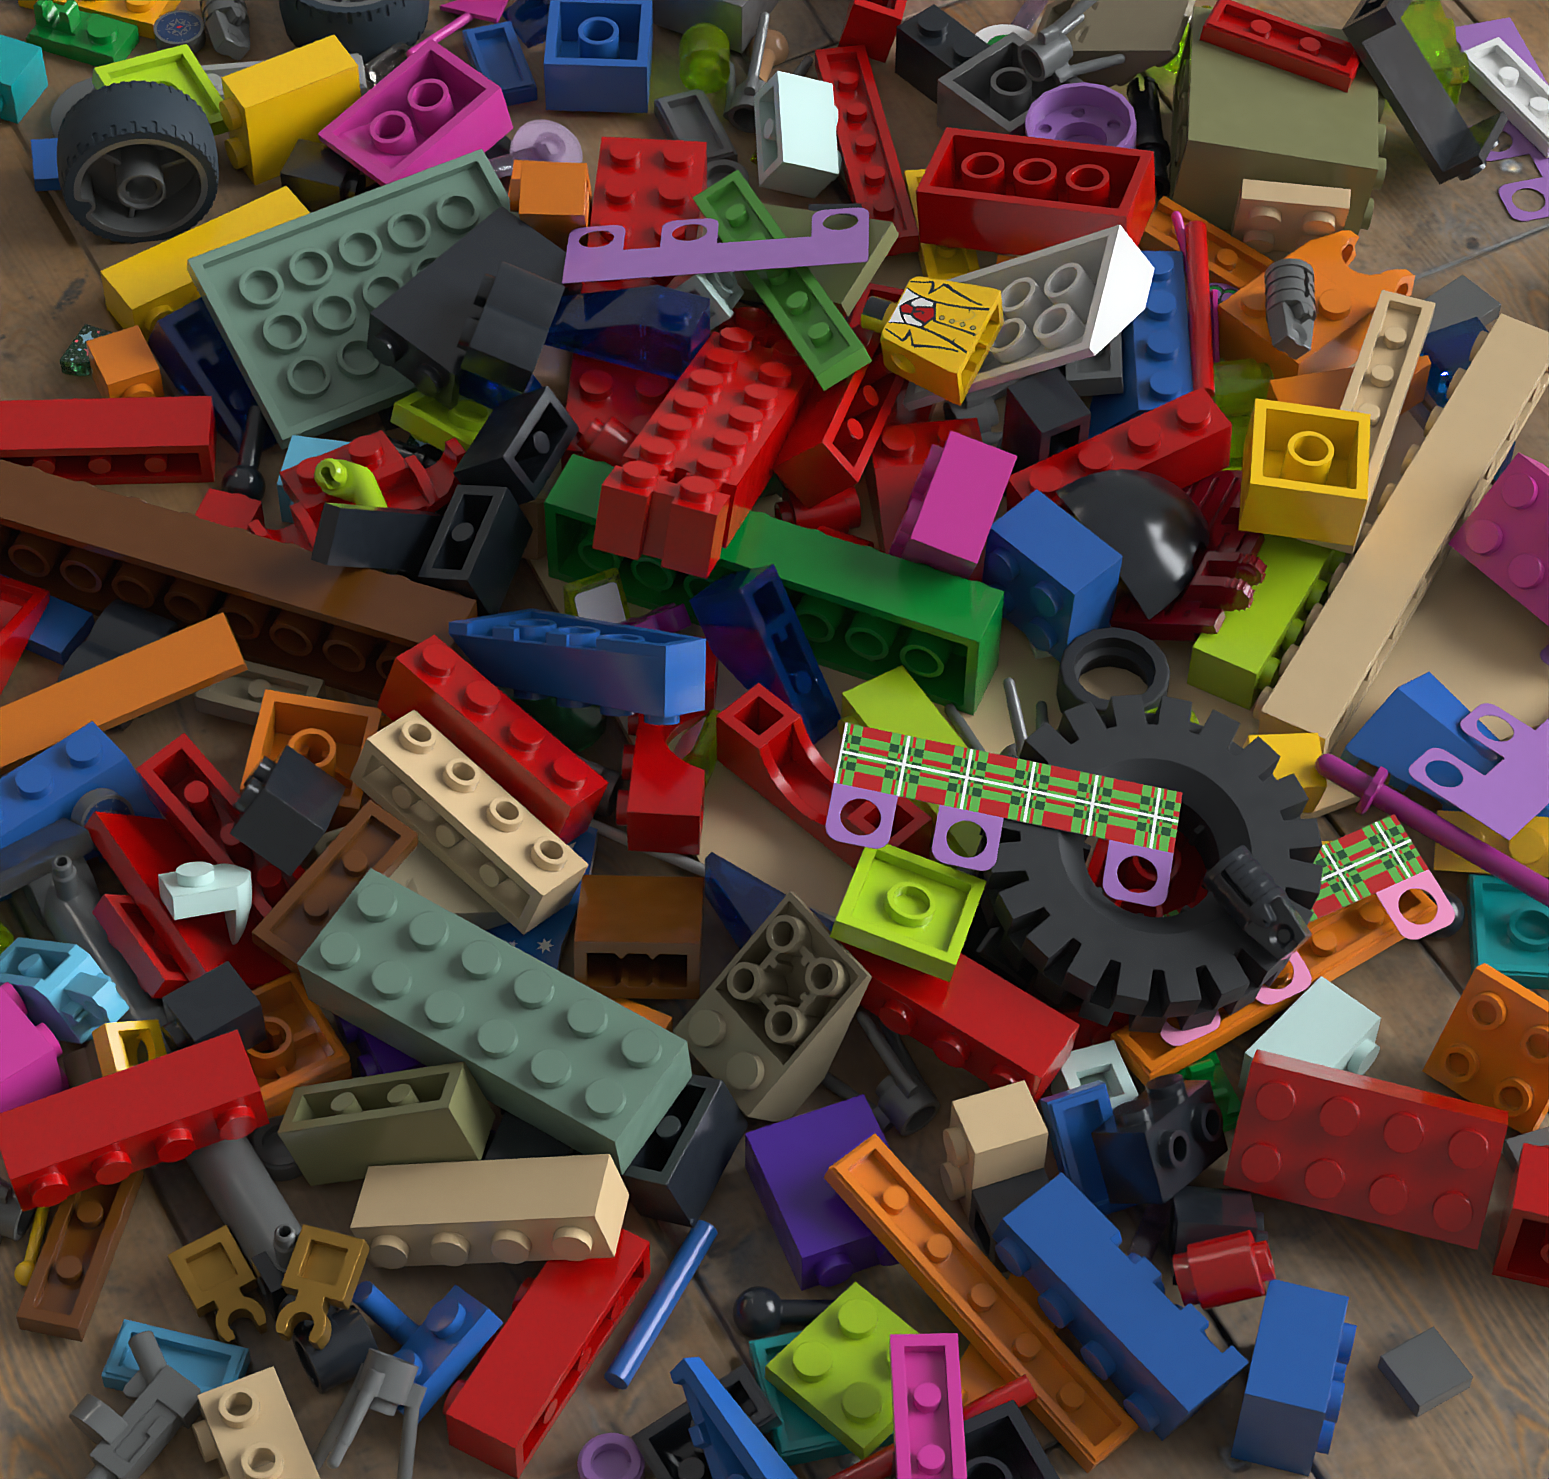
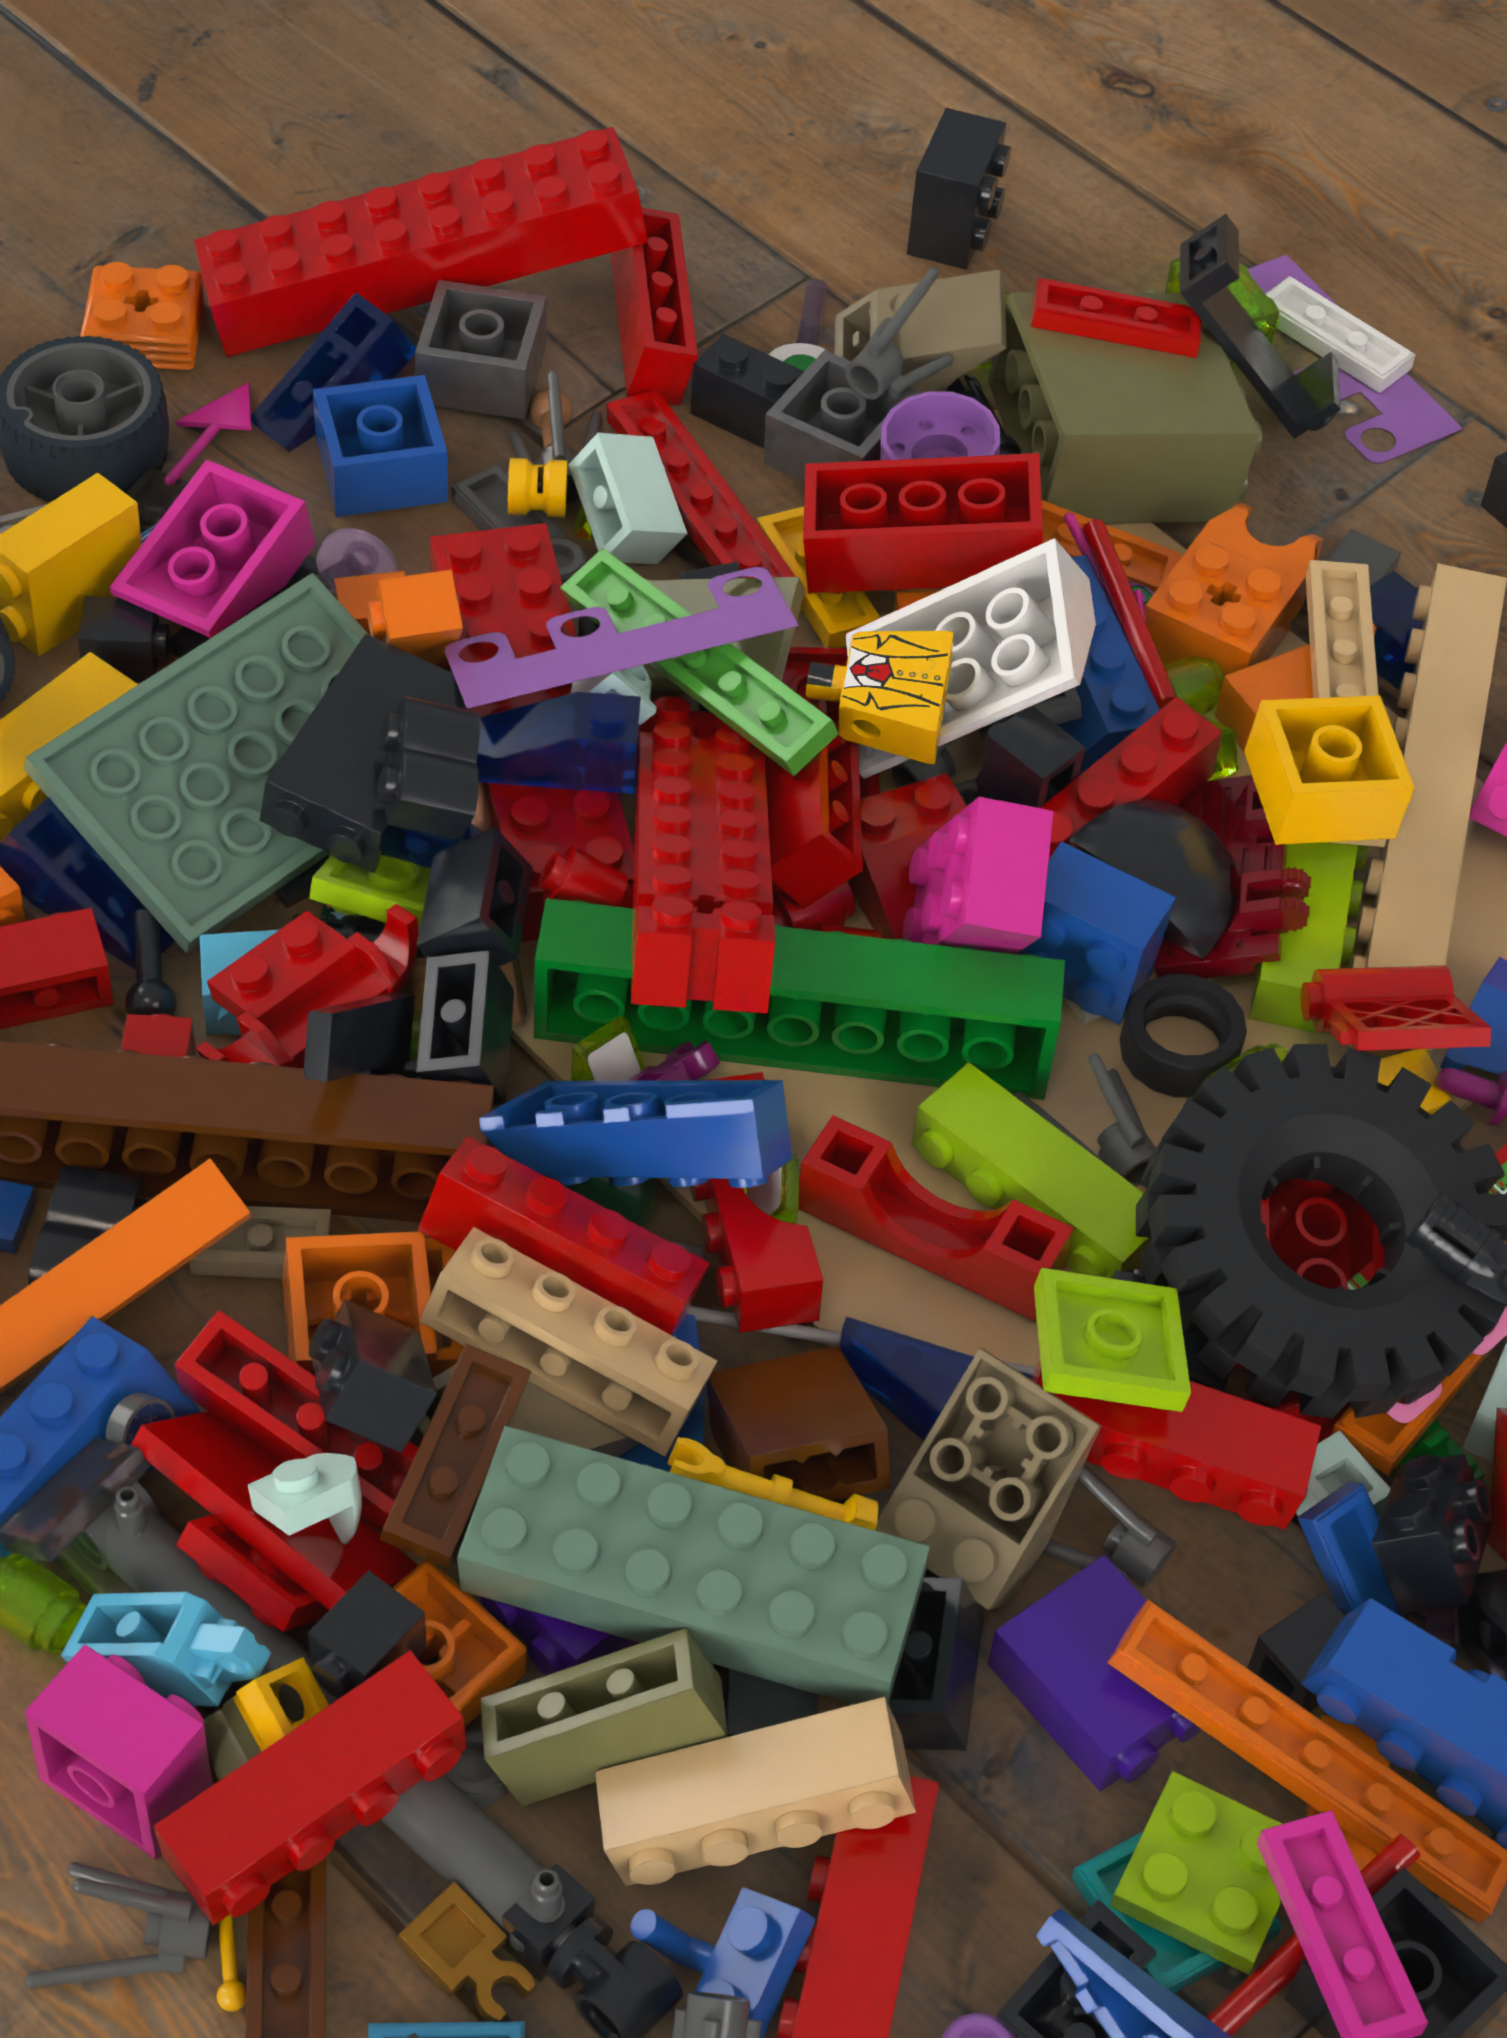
camera: 20 degrees left, 0 degrees up
(320, 1274) = (601, 1917): pearl gold plate -> none
(349, 482) = (303, 980): lime arm -> none
(499, 57) = (264, 460): blue tile -> none
(529, 937) = (698, 1463): none -> yellow piece
(660, 1305) = (960, 1850): blue bar -> none
(704, 58) = (492, 431): clear neon green brick -> none
(720, 112) = (523, 487): none -> yellow wheel
(762, 1312) = (1071, 1828): black bar -> none
(763, 642) = (819, 1064): clear blue slope -> none
(992, 1140) = (1264, 1579): tan brick -> none
(995, 787) = (1166, 1182): piece -> none
(1281, 687) = (1391, 1008): none -> red piece
(1287, 214) = (1177, 498): tan plate -> none
(1290, 305) = (1229, 593): dark grey hinge -> none

